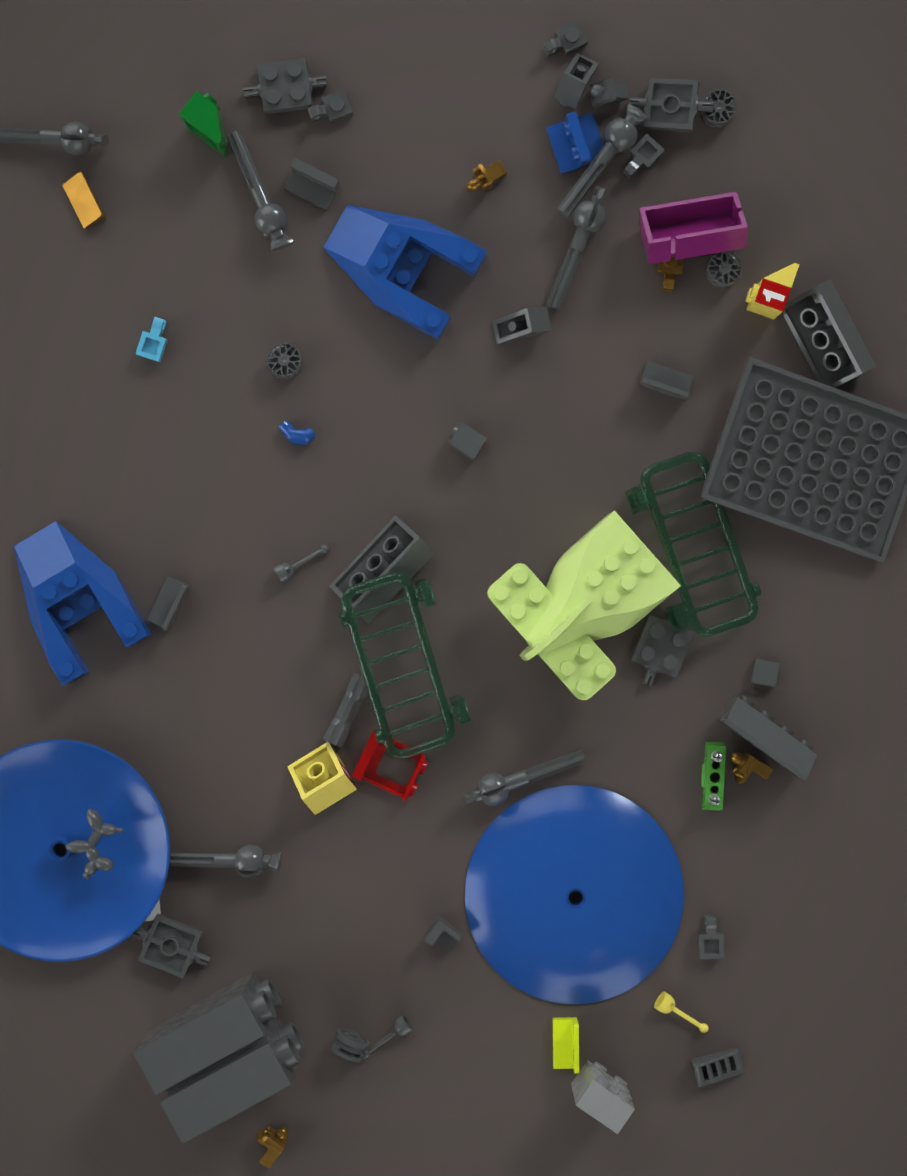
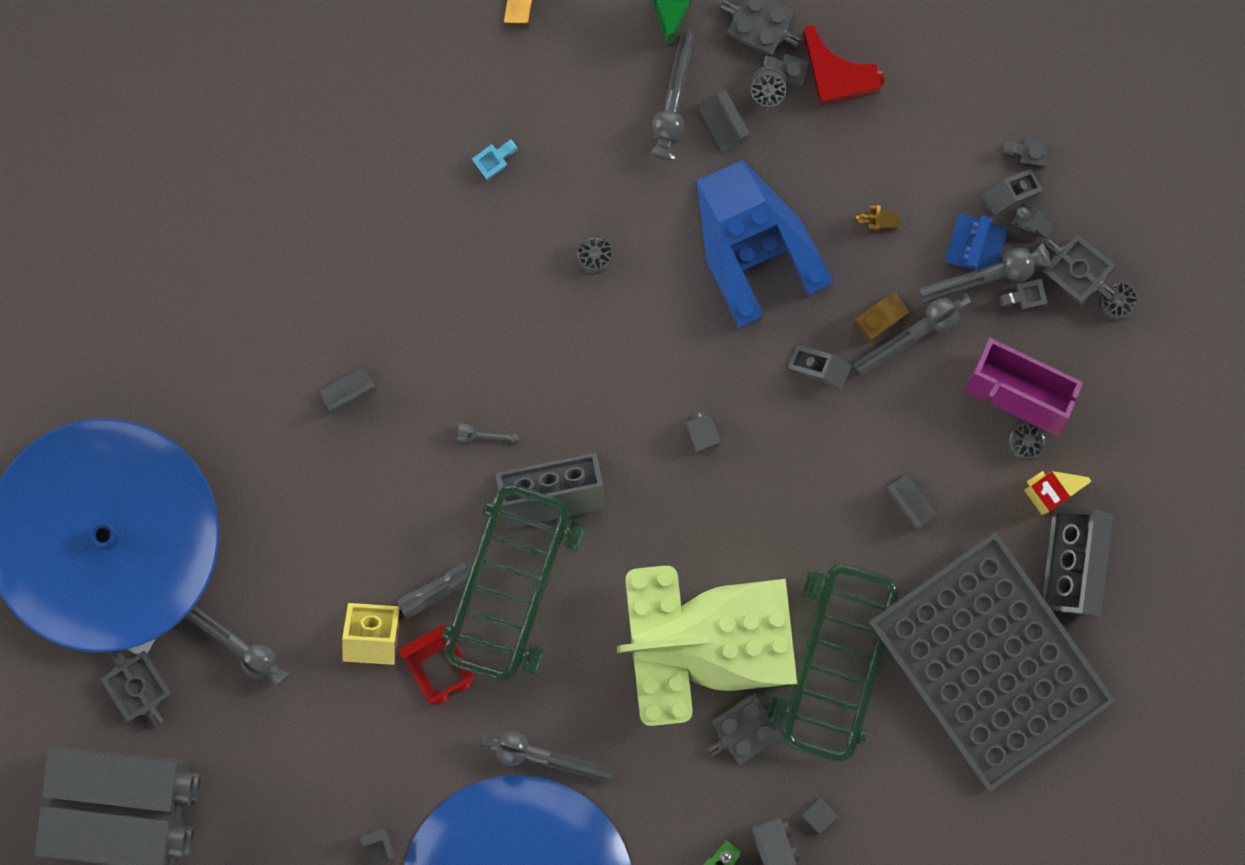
camera: 30 degrees right, 5 degrees down
(66, 585) = (268, 313): blue wedge -> none
(81, 846) = (151, 541): dark grey piece -> none
(297, 437) = (559, 325): blue arm -> none
(326, 130) = (768, 85): none -> dark grey wheel
(375, 86) = (836, 77): none -> red arch
(542, 252) = (881, 317): none -> pearl gold slope
(670, 270) = (980, 408): pearl gold plate -> none

